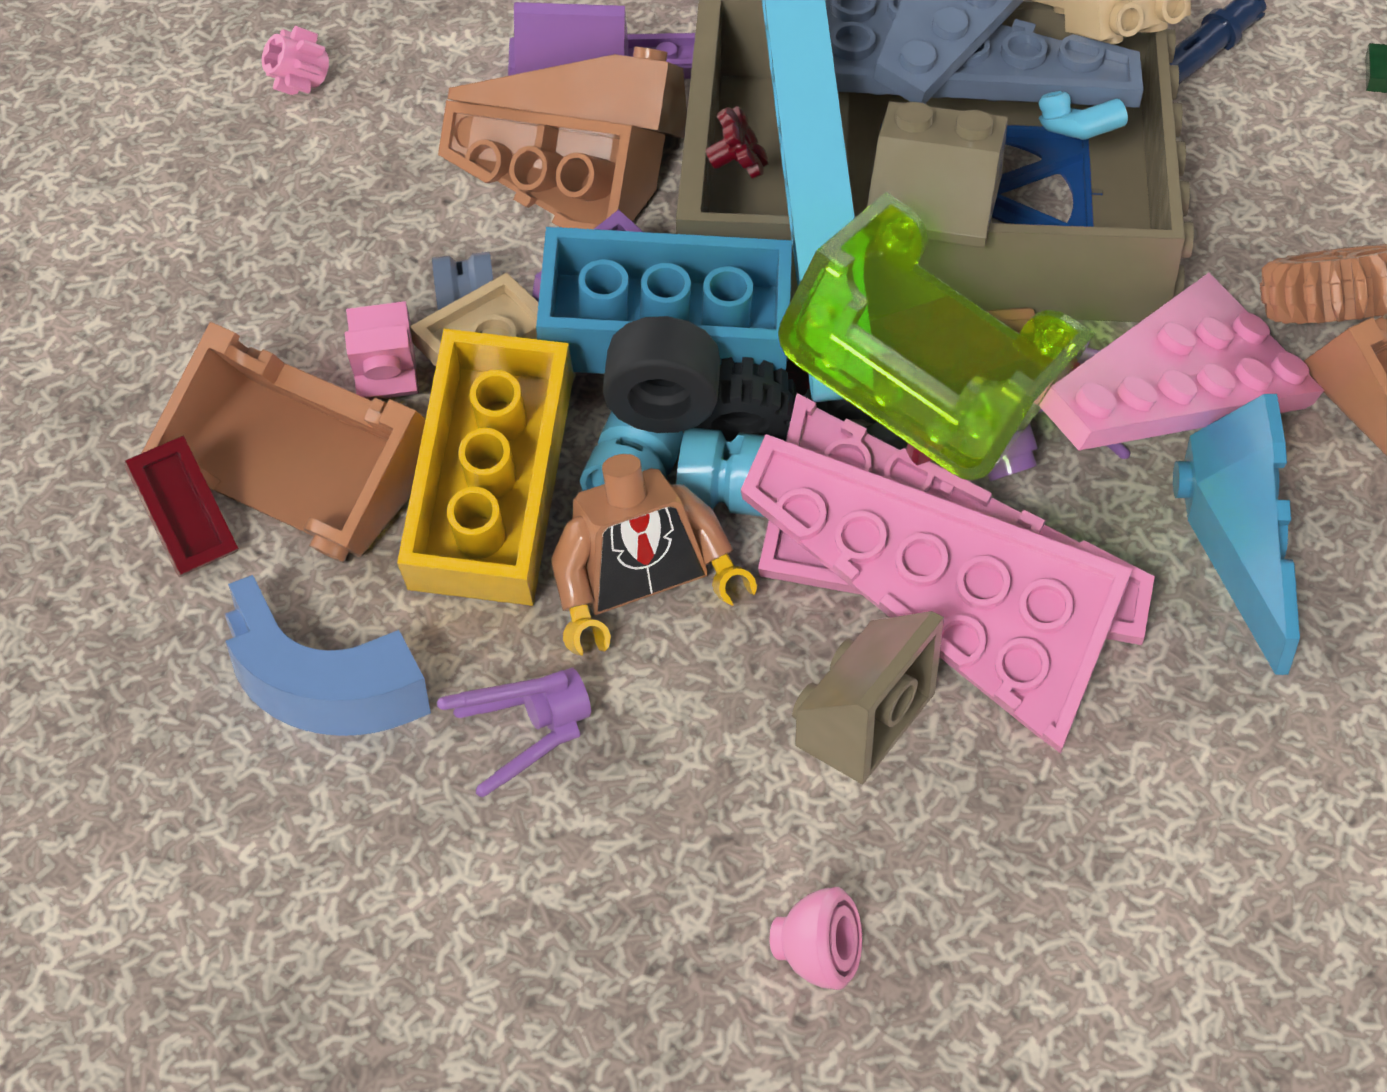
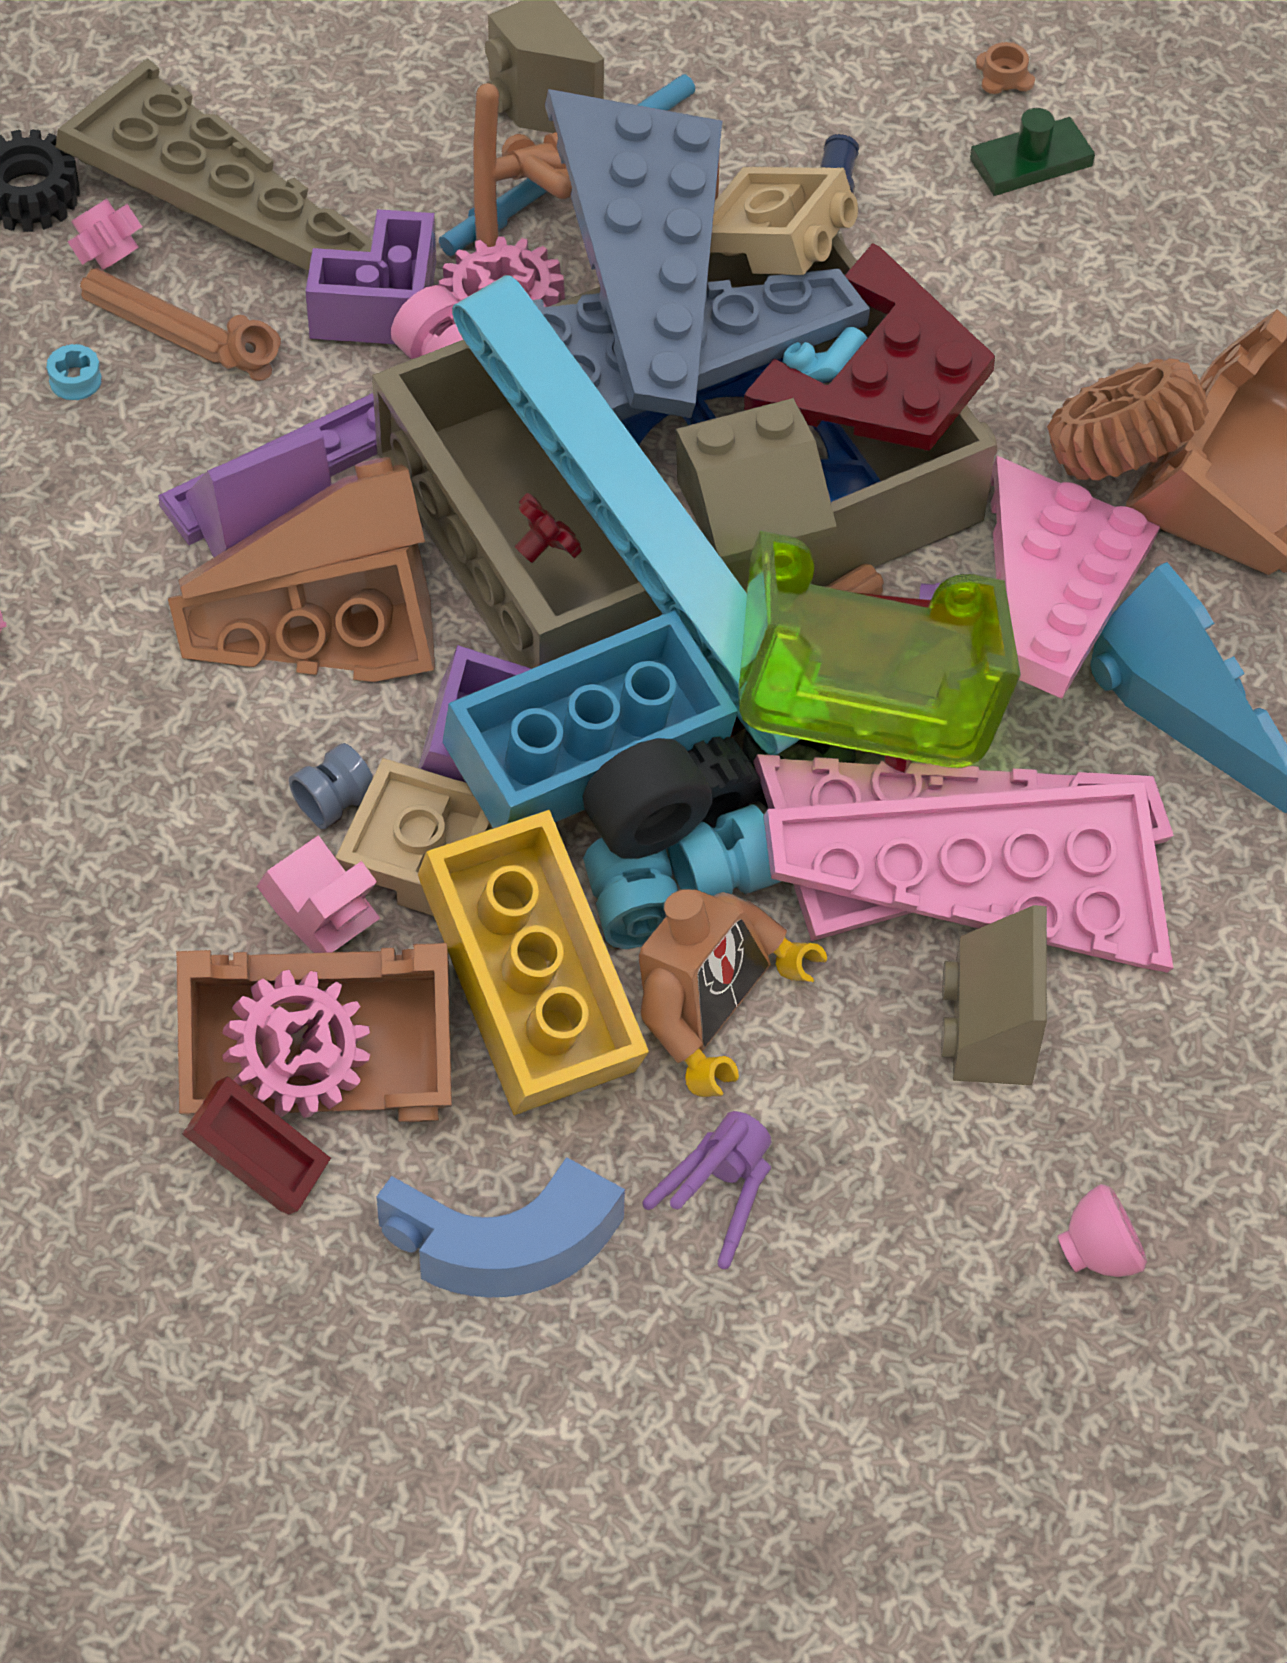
camera: 35 degrees left, 5 degrees up
(249, 458) = (319, 1055): none -> bright pink gear
(1137, 155) = (906, 375): none -> dark red wing

